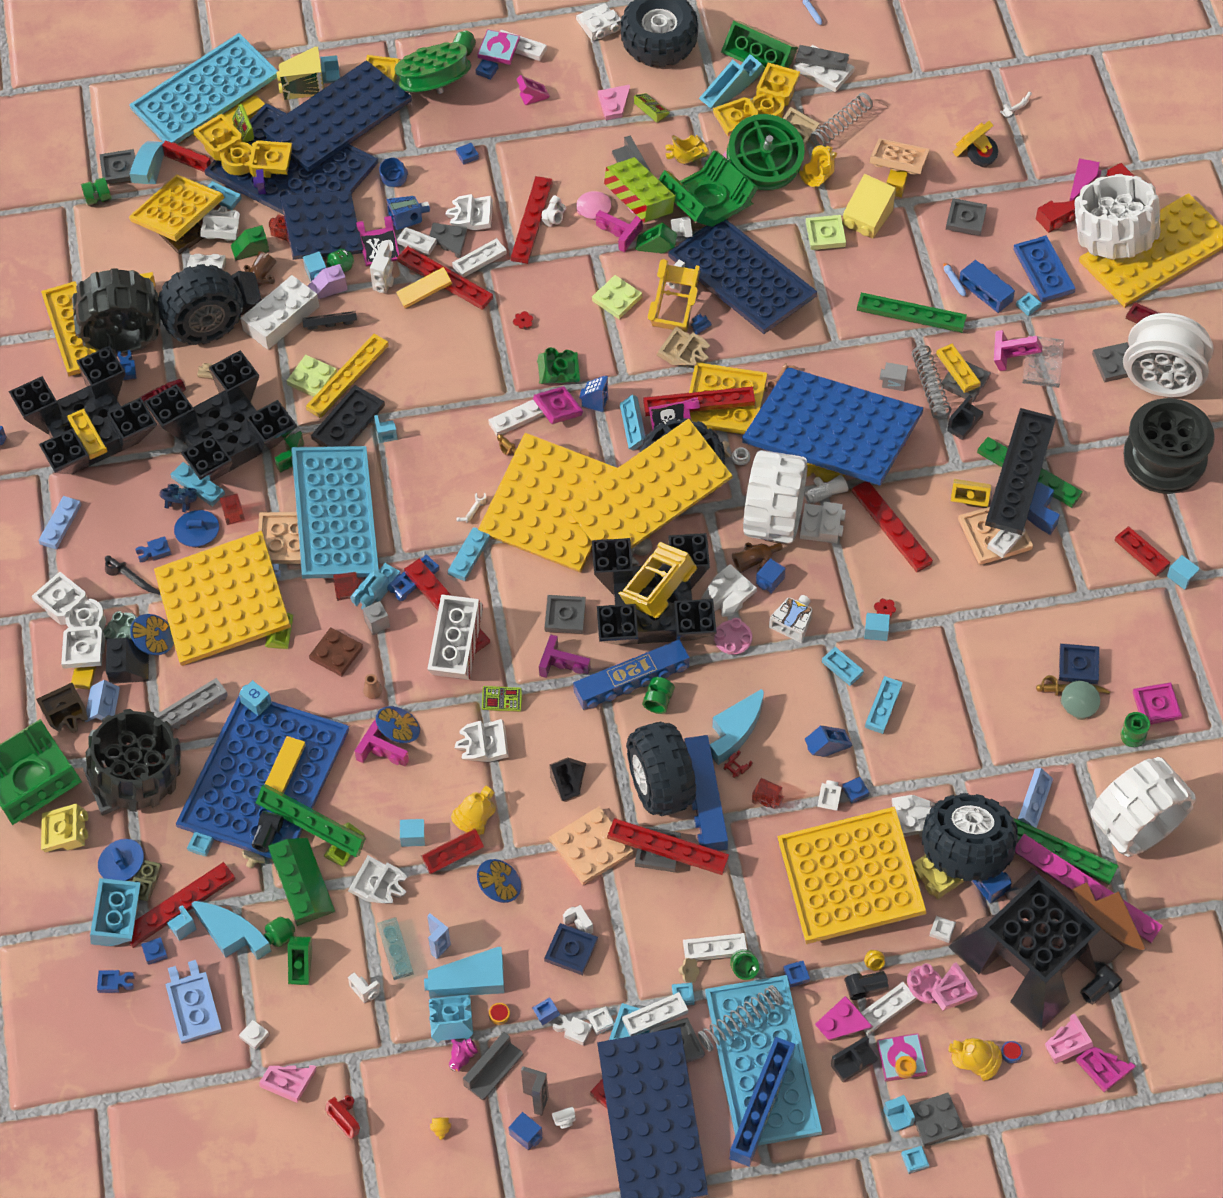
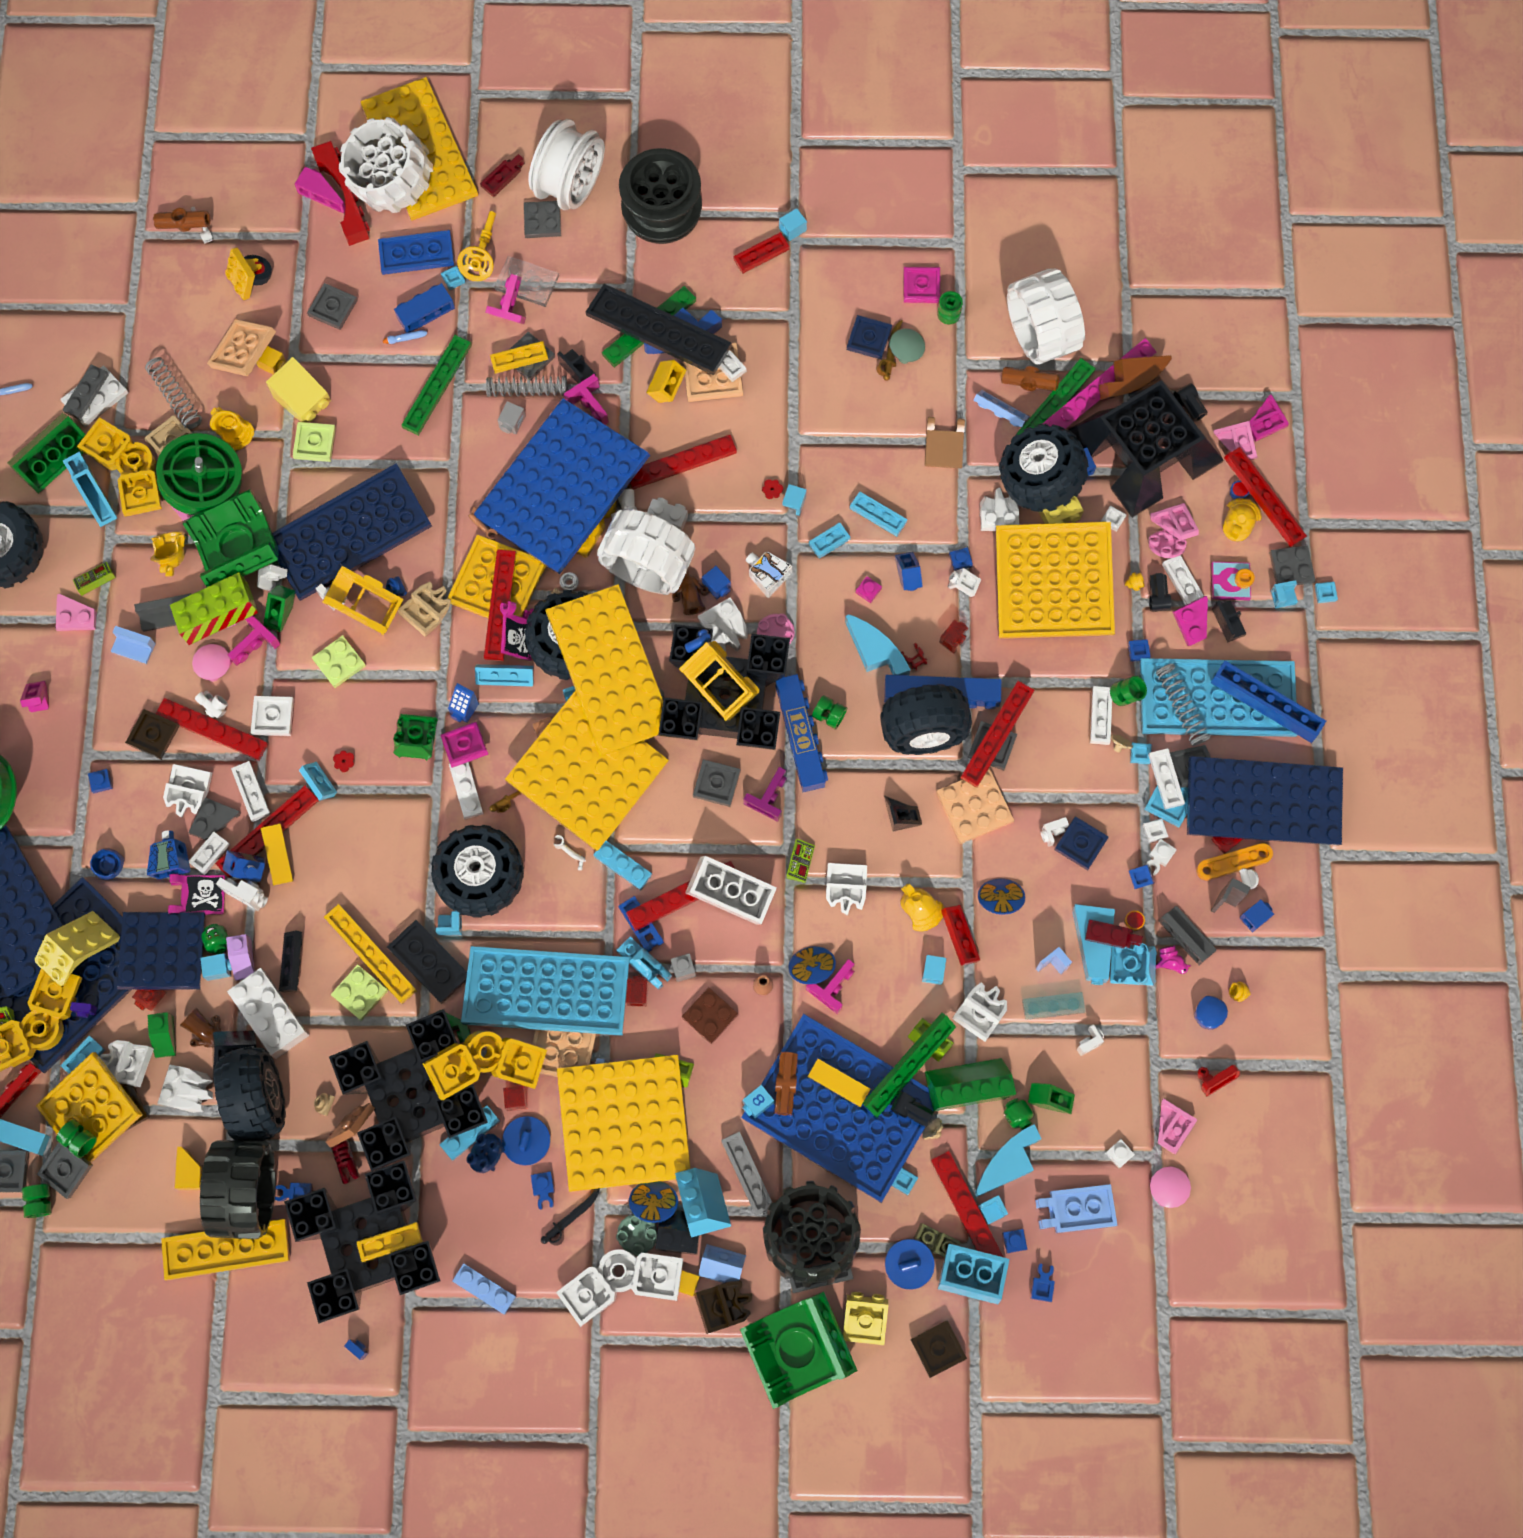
camera: 80 degrees left, 15 degrees up
(42, 897) = (938, 1349): none -> dark brown plate
(124, 203) = (64, 1170): none -> dark grey plate
(148, 201) = (78, 1139): none -> green wheel
(154, 668) = (702, 1201): none -> medium azure slope
(182, 381) = (350, 1124): none -> nougat plate
(226, 1087) = (1170, 1187): none -> bright pink dish
(247, 446) = (505, 1058): none -> yellow plate
(276, 718) = (786, 1083): none -> dark orange piece
(314, 159) = (72, 944): none -> light yellow bracket
(406, 264) = (245, 866): none -> blue torso
(411, 1097) = (1211, 1012): none -> blue hair
(436, 434) = (483, 890): none -> black wheel
(473, 982) = (1111, 935): none -> dark red hinge
(499, 303) = (318, 781): none -> medium azure plate
(516, 178) = (152, 734): none -> dark brown plate
(553, 258) = (272, 715): none -> white plate
(581, 1101) = (1234, 861): none -> light orange plate
(595, 147) = (132, 645): none -> light blue panel
(695, 555) = (698, 642): none -> blue arm
(800, 711) = (868, 589): none -> dark pink plate
(936, 428) = (582, 393): none -> dark pink bracket
(978, 755) = (944, 447): none -> medium nougat flag
(1007, 1075) = (1265, 497): none -> red plate
(1014, 87) = (181, 219): none -> dark orange piece
(1051, 316) = (478, 257): none -> yellow dish
(1077, 818) = (1030, 378): none -> dark orange piece

